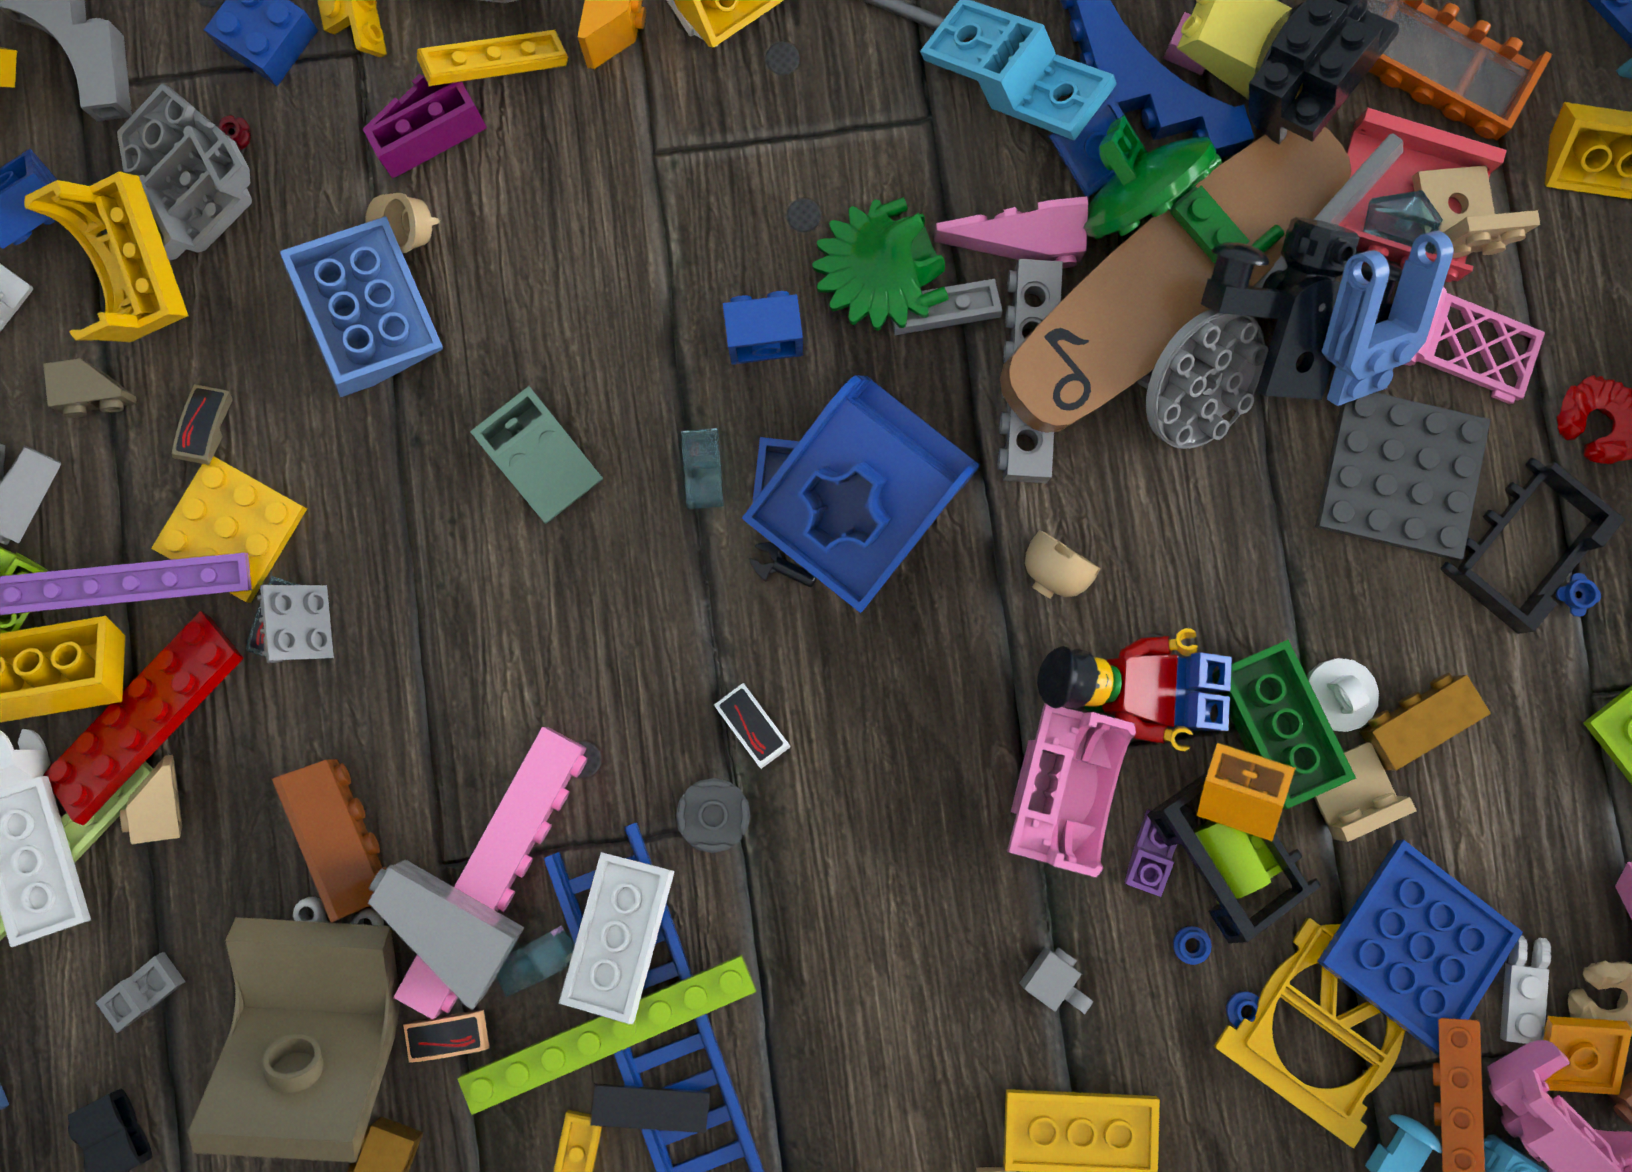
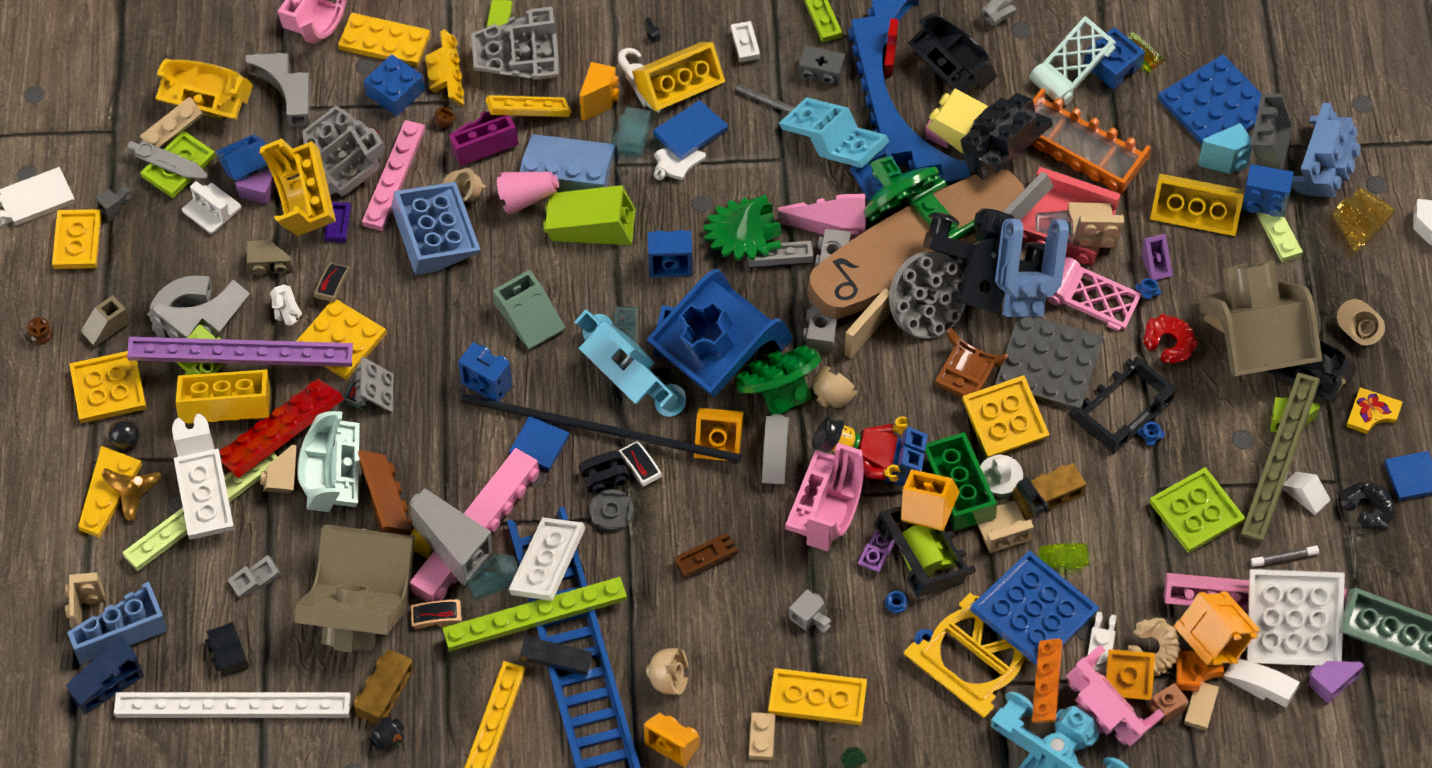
camera: 10 degrees right, 25 degrees down
(52, 250) = (257, 187): none -> medium lavender slope
(127, 477) = (285, 305): none -> white rock
(201, 297) = (338, 230): none -> dark purple tile
(233, 790) = (329, 472): none -> light aqua piece
(283, 203) = (393, 175): none -> bright pink plate
(354, 85) = (444, 117): none -> reddish brown tile
(468, 583) = (485, 372): none -> blue piece
(503, 224) = (525, 188): none -> bright pink cone
(571, 161) = (574, 162): none -> medium blue slope
(581, 700) = (541, 442): none -> blue tile
(621, 263) = (591, 216): none -> lime slope
(677, 88) = (633, 131): none -> clear light blue brick
(680, 666) = (601, 428): none -> black piece
(684, 770) = (604, 471): none -> black brick
(710, 548) = (637, 380): none -> medium azure piece
(755, 140) = (672, 166): none -> white arm
(772, 77) = (690, 130): none -> blue tile
(835, 1119) = (667, 671): none -> tan cylinder
(875, 890) = (705, 555): none -> reddish brown hinge
(876, 660) = (719, 430): none -> light orange slope
(972, 551) = (782, 379): none -> green bracket
(974, 683) = (775, 449): none -> light grey arch
(1107, 436) = (867, 323): none -> tan tile
(1274, 503) = (966, 367): none -> dark orange piece
(1345, 591) = (1005, 416): none -> yellow plate
(1406, 749) = (1031, 496): none -> black bar
(1456, 837) = (1065, 554): none -> clear neon green slope
(1556, 322) = (1148, 288): none -> blue plate
(1568, 265) = (1156, 257): none -> medium lavender slope

